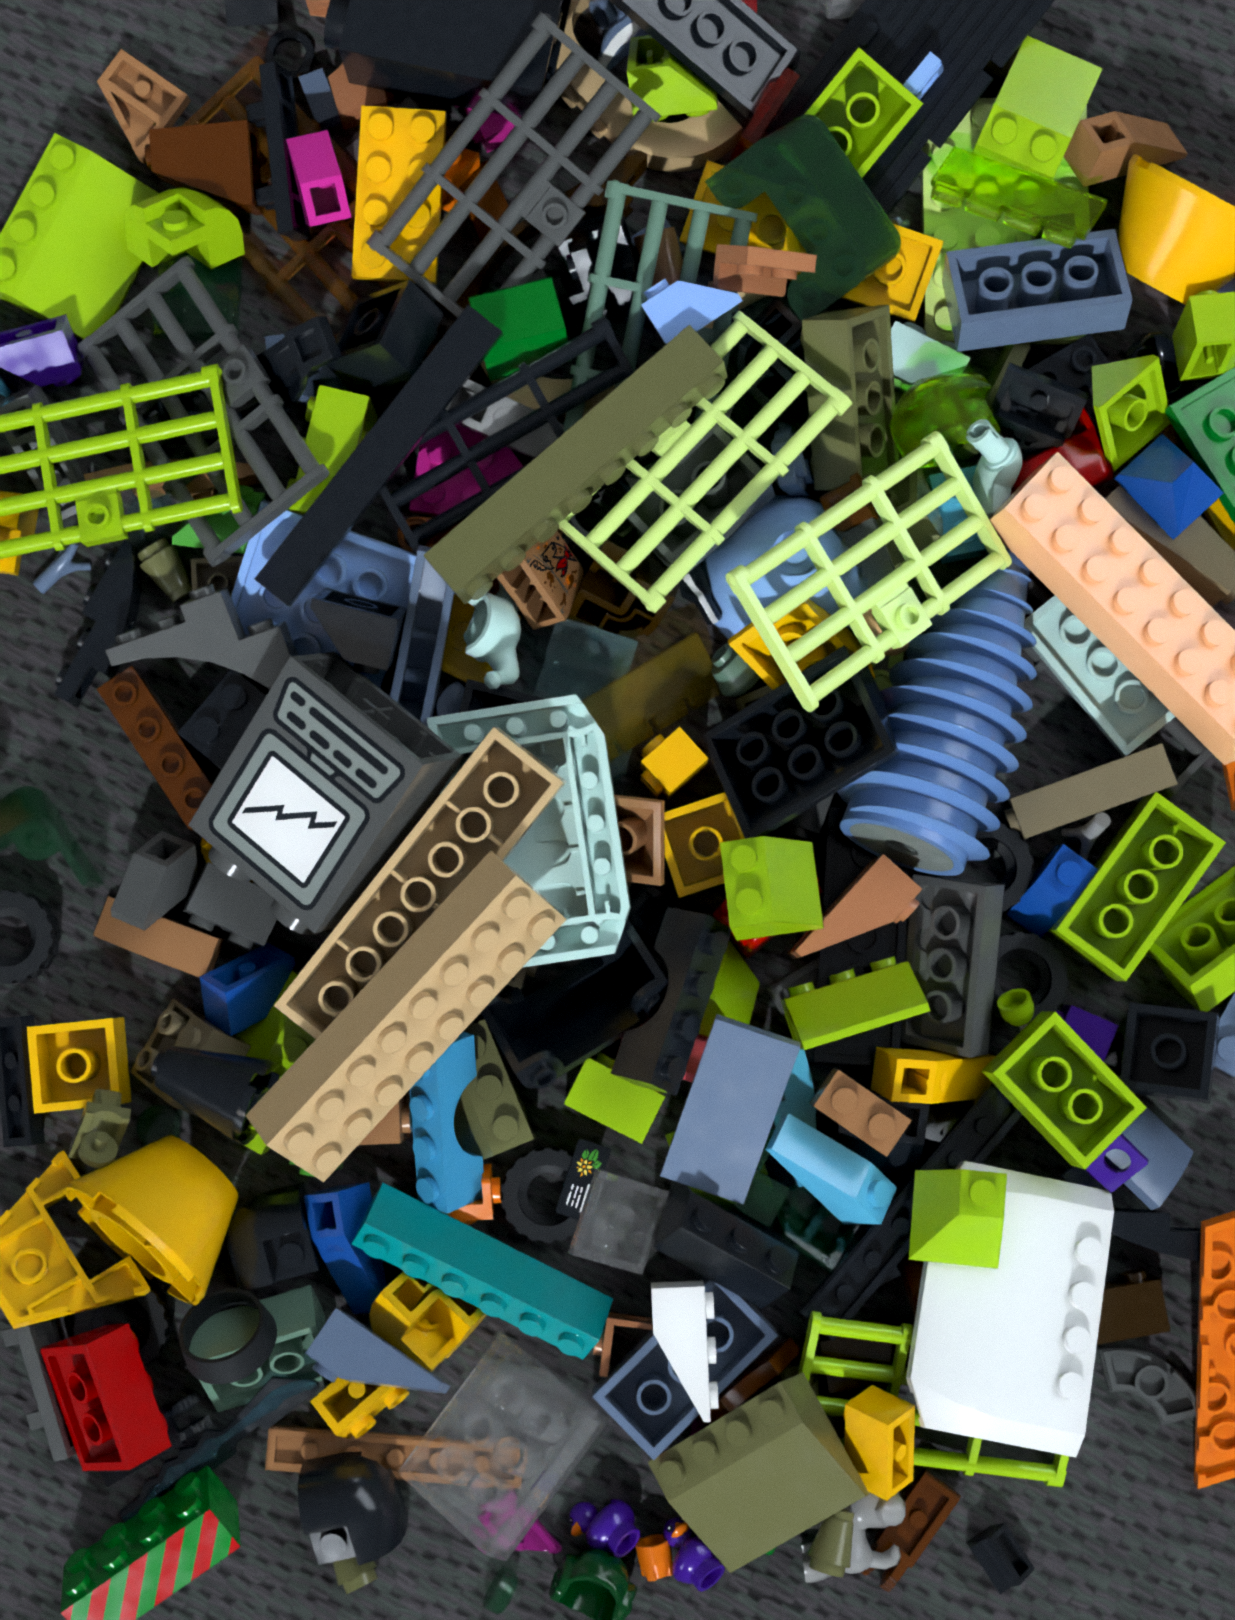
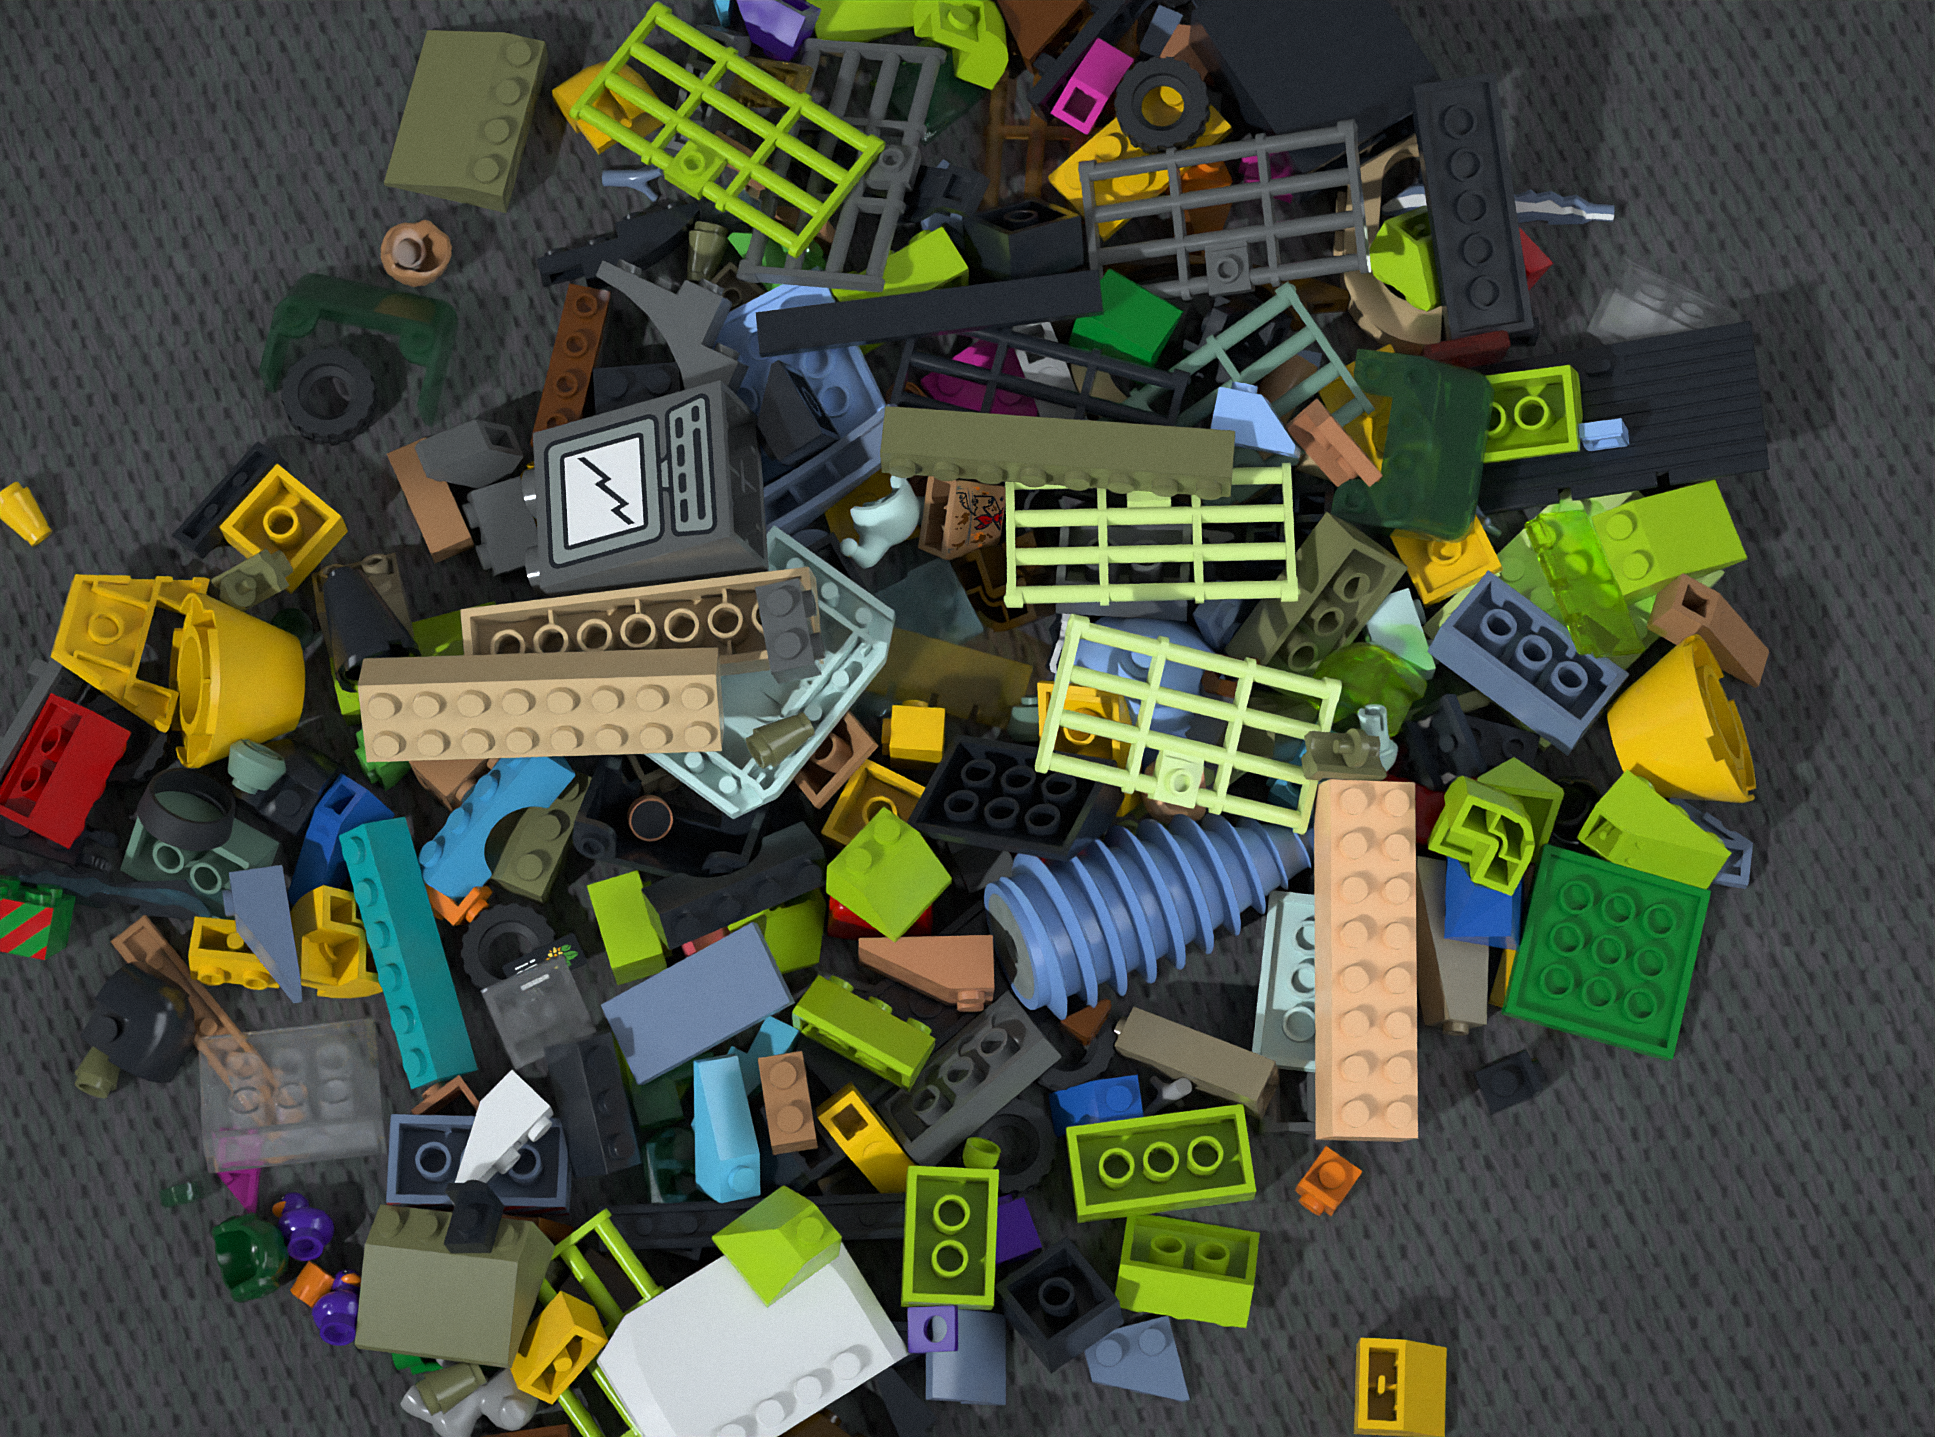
camera: 45 degrees right, 10 degrees down
(80, 426) = (749, 95): none -> clear yellow slope
(243, 1260) = (254, 766): none -> sand green cone
(245, 988) = (445, 586): blue slope -> none
(376, 109) = (1154, 74): none -> black tyre
(531, 789) = (789, 631): none -> dark grey brick
(551, 1008) = (649, 818): none -> black tile
(595, 868) = (779, 739): none -> olive cone
(738, 1423) = (474, 1217): none -> black bracket
(995, 484) = (1342, 756): none -> olive hips
(997, 842) = (1087, 1022): none -> reddish brown slope
(1140, 436) = (1486, 832): none -> lime brick

